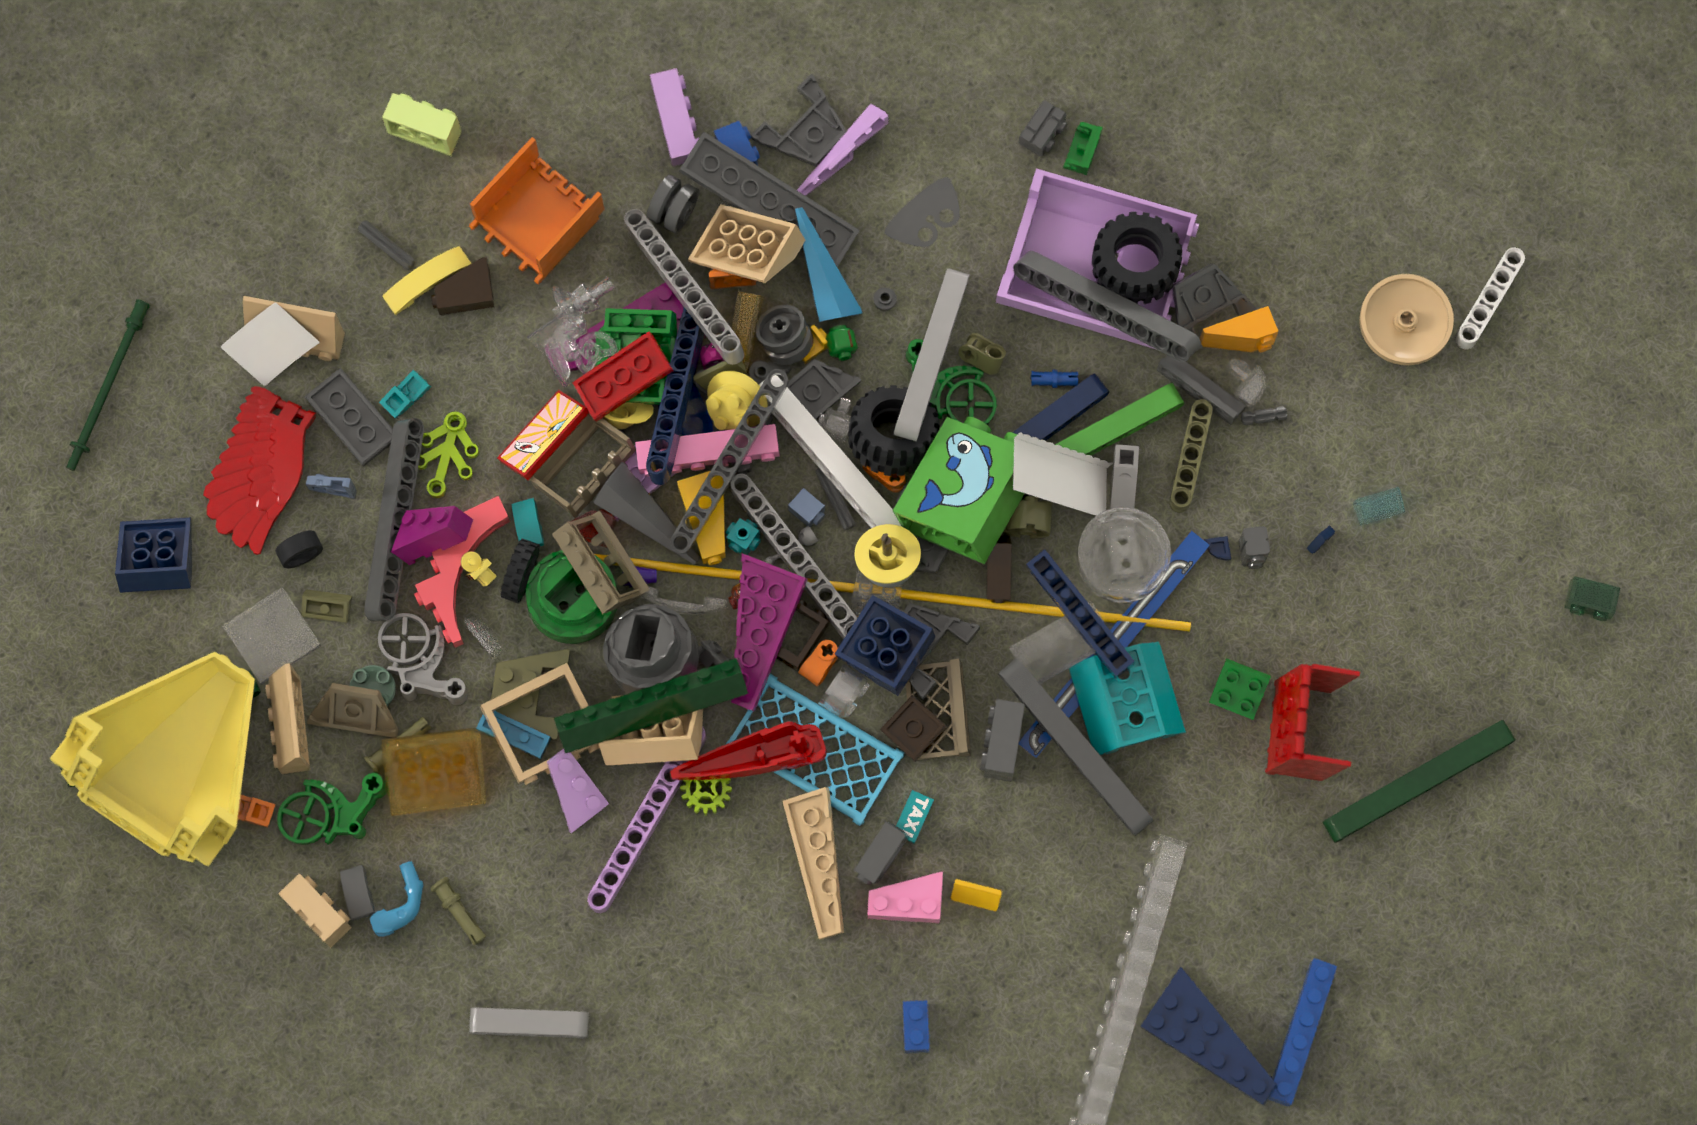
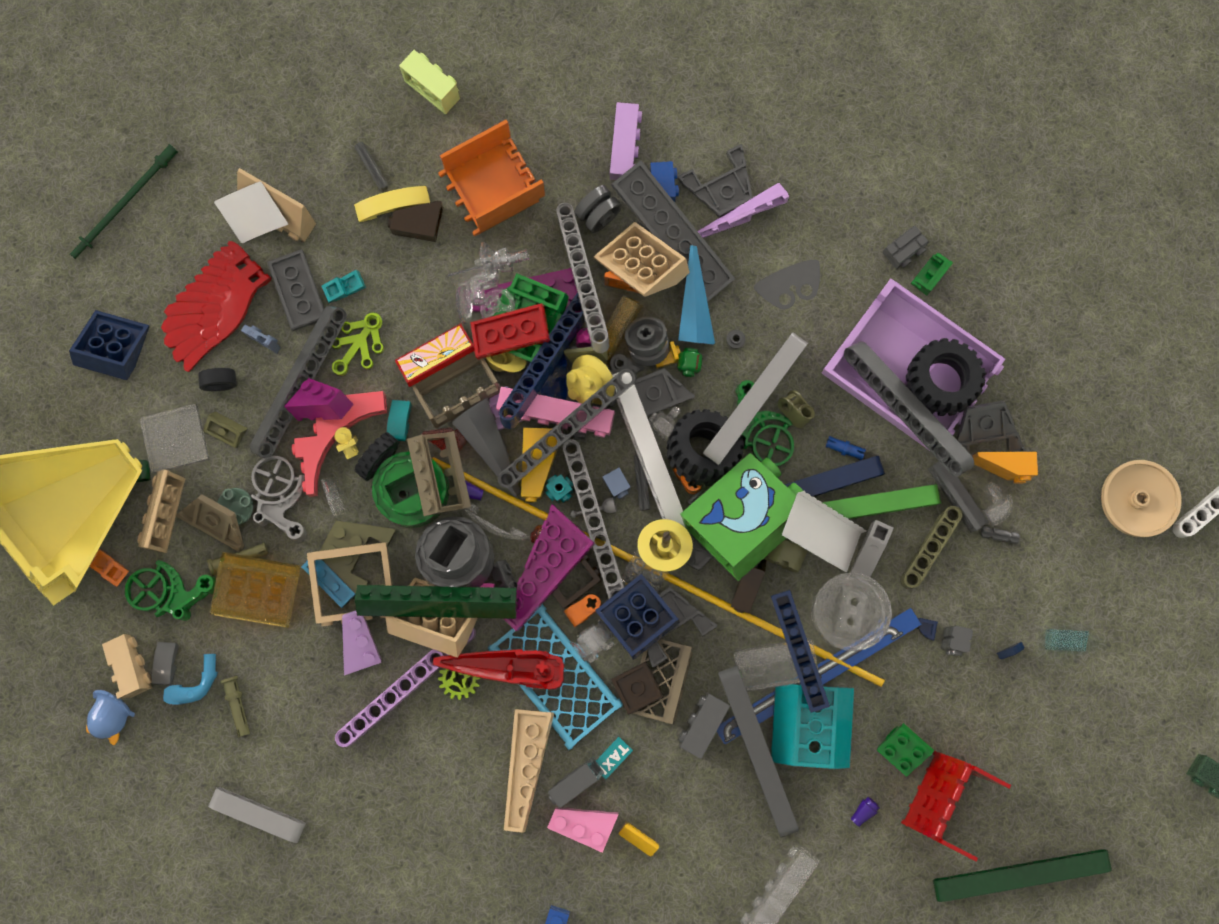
camera: 20 degrees right, 5 degrees up
(314, 971) = (107, 716): none -> medium blue hair
(1220, 773) = (865, 811): none -> dark purple cone

